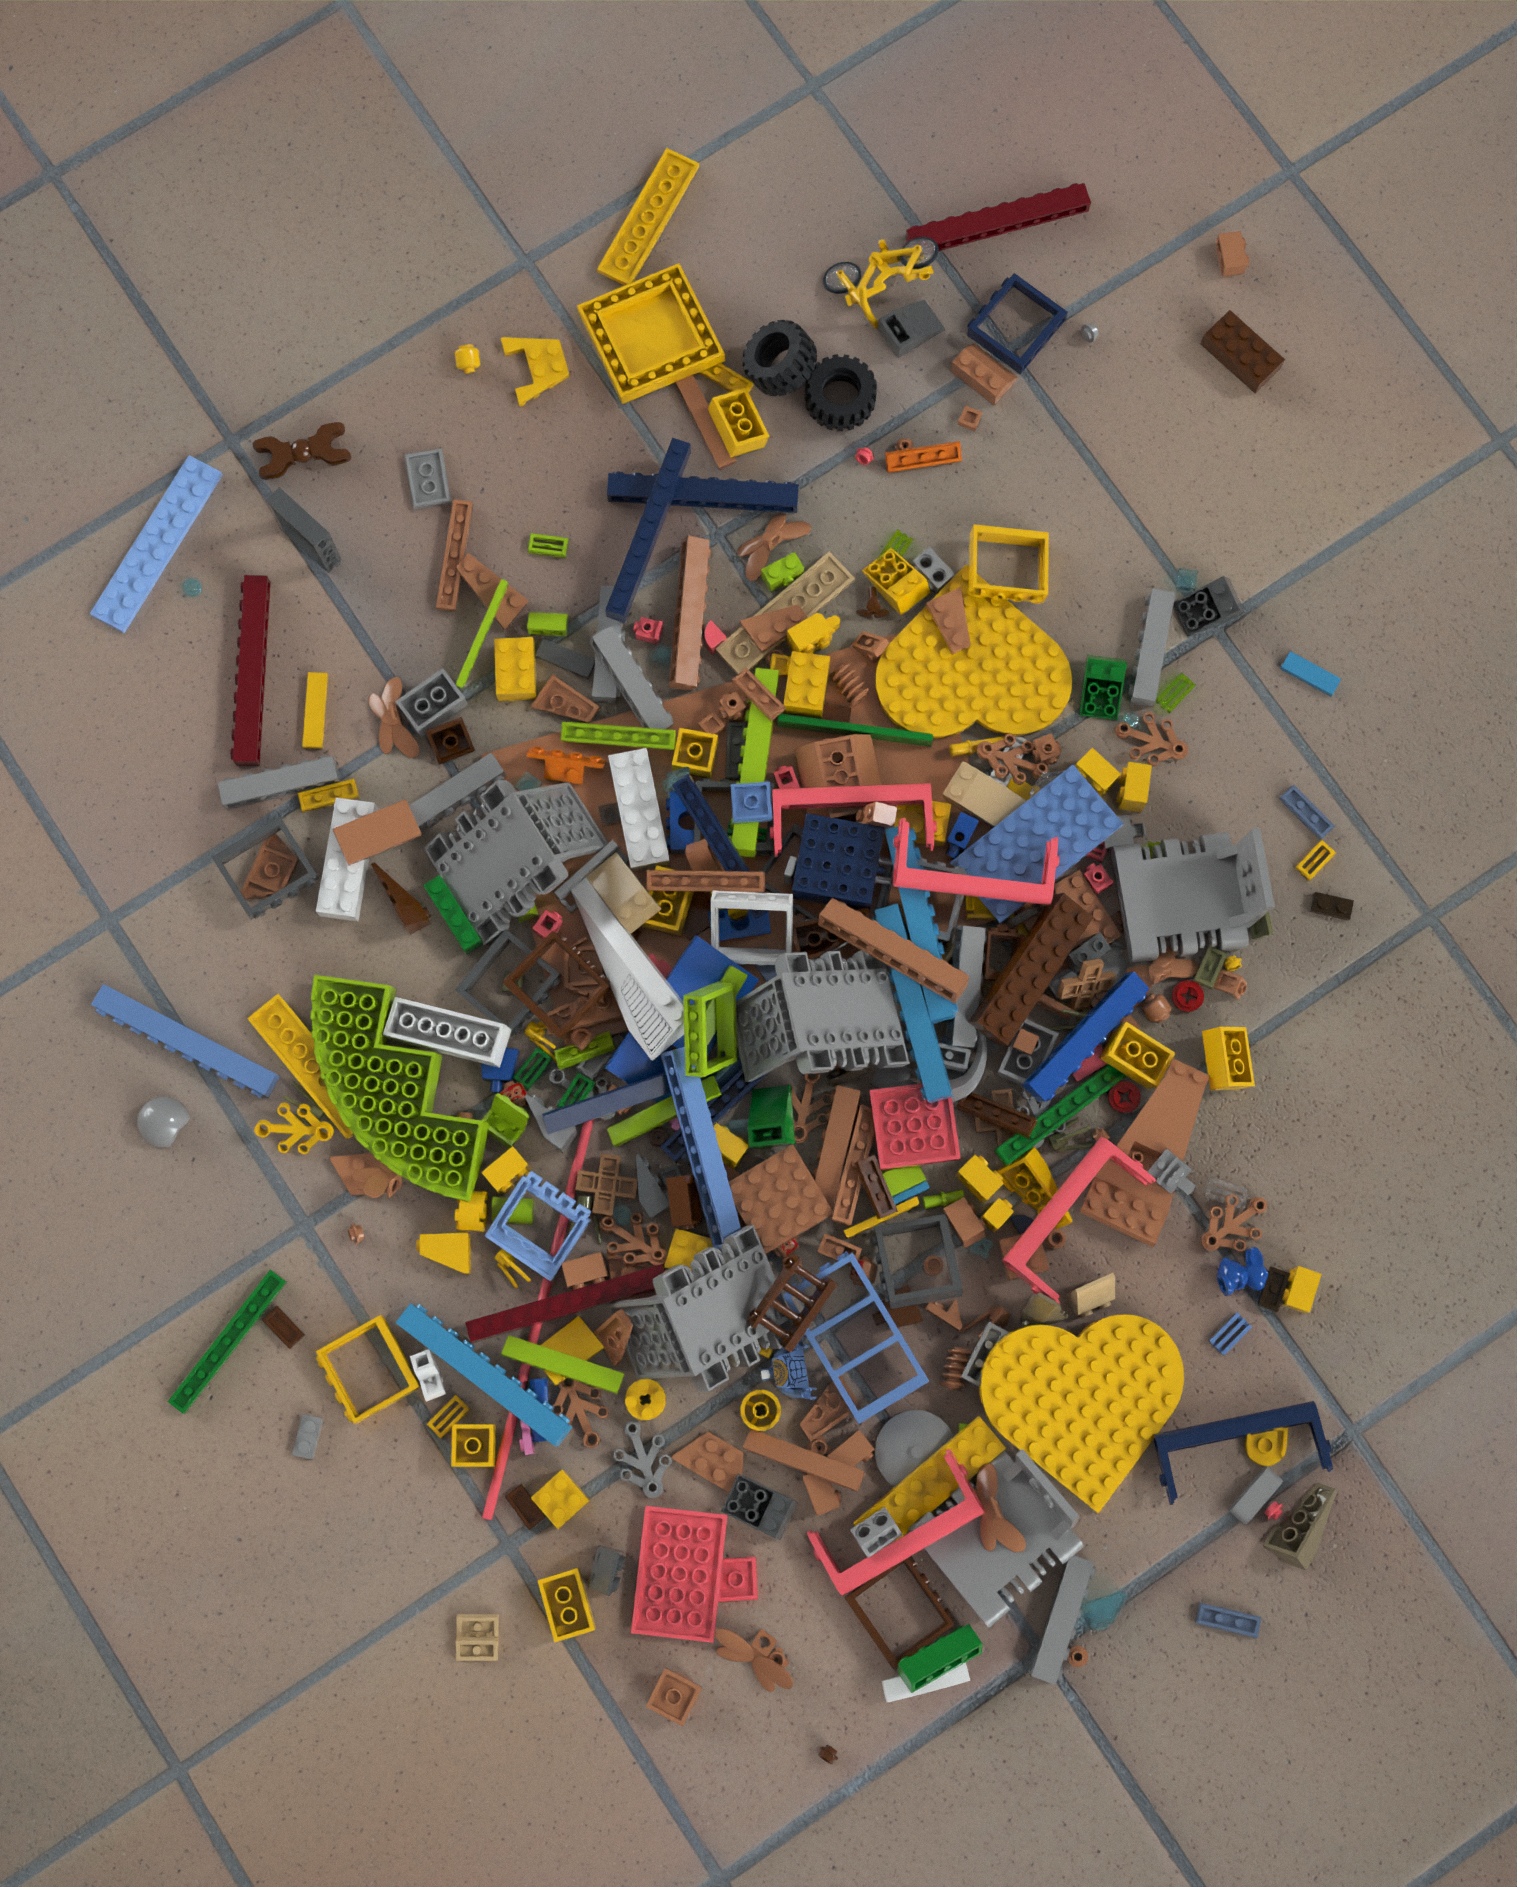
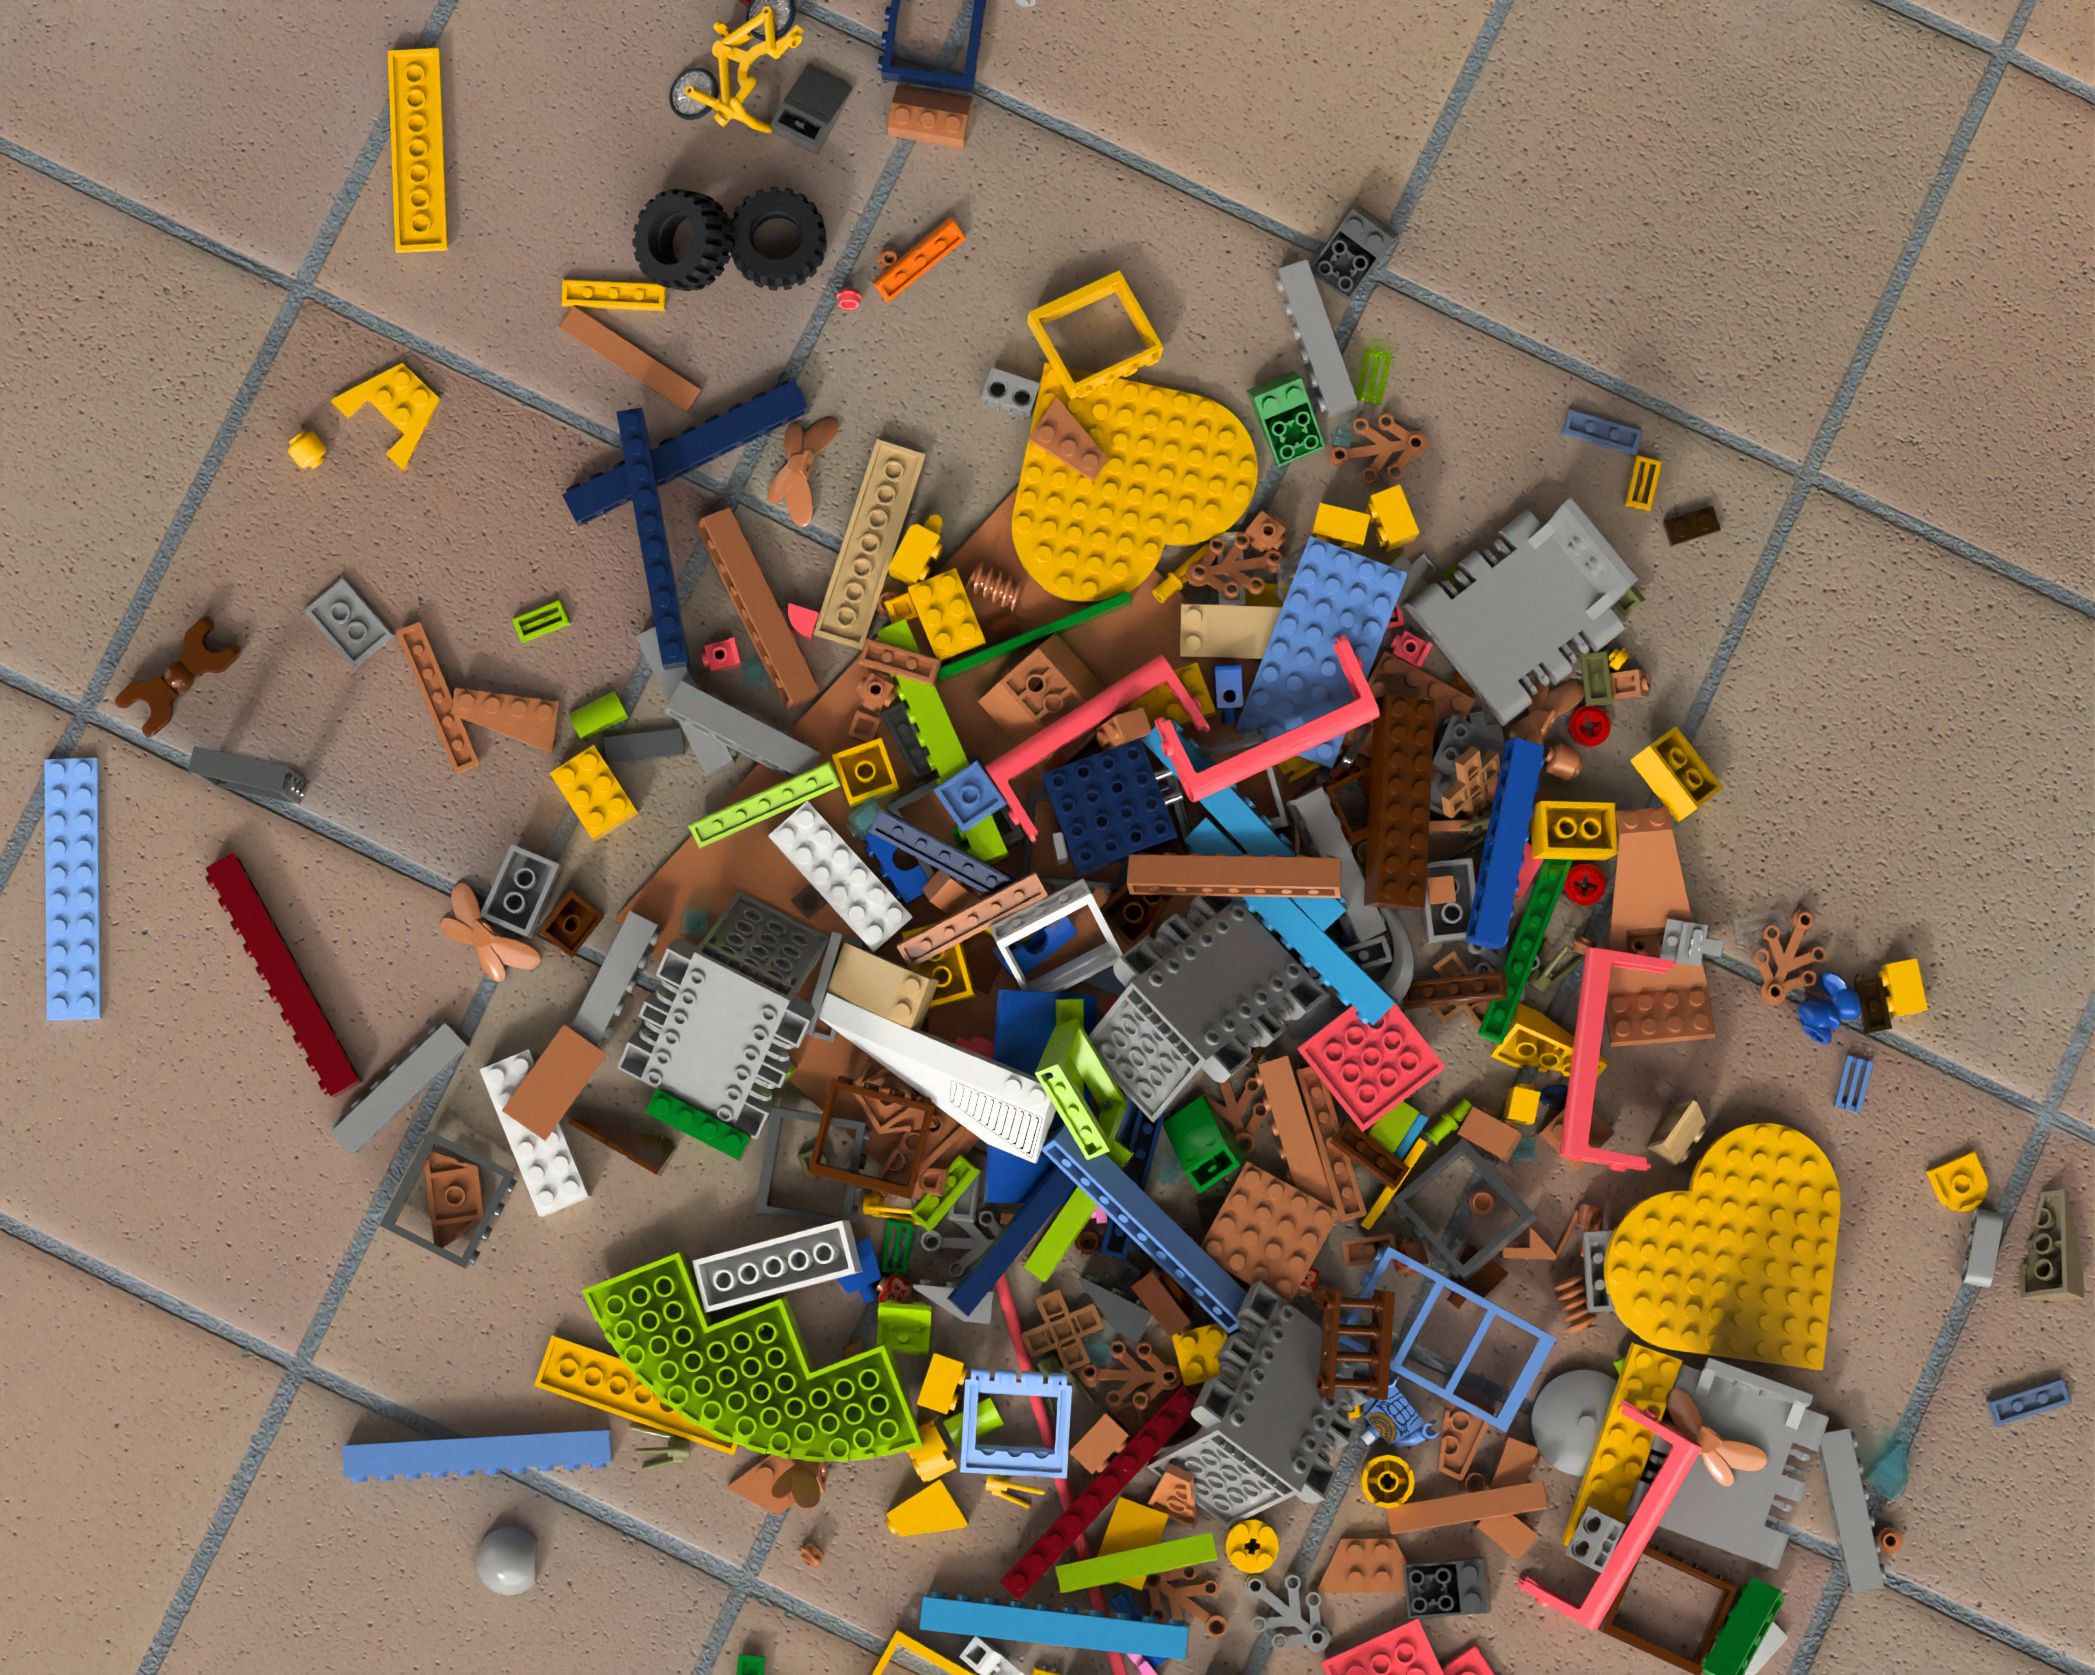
camera: 35 degrees left, 5 degrees up
(192, 587) = (149, 916): clear light blue plate -> none
(297, 1129) = (671, 1478): yellow plant -> none
(315, 710) = (387, 978): yellow tile -> none
(326, 795) = (465, 1070): yellow tile -> none
(482, 633) = (531, 775): lime tile -> none
(547, 917) = (812, 1083): coral brick -> none
(565, 701) = (674, 797): nougat wing -> none
(565, 766) = (722, 875): orange bracket -> none
(572, 1086) = (956, 1246): green tile -> none
(651, 333) = (507, 293): yellow tile -> none
(731, 1146) = (1177, 1203): yellow brick -> none
(738, 422) = (678, 344): yellow brick -> none
(772, 627) = (866, 567): nougat wing -> none
(782, 572) = (837, 496): lime brick -> none
(785, 773) = (981, 735): coral brick -> none
(870, 645) = (991, 525): nougat slope -> none
(873, 606) = (967, 475): reddish brown plant -> none
(899, 587) = (976, 428): yellow slope -> none
(903, 536) = (951, 370): clear neon green tile -> none
(970, 418) = (946, 181): nougat plate -> none
(980, 1178) = (1478, 1076): yellow brick -> none
(1042, 1311) = (1631, 1187): dark tan wedge -> none
(1062, 1239) = (1608, 1089): nougat plate -> none
(1186, 579) = (1309, 233): clear light blue plate -> none
(1235, 1428) = (1919, 1184): dark blue piece -> none
(1274, 1511) = (2012, 1253): coral plate -> none
(1310, 673) = (1514, 264): dark azure tile -> none

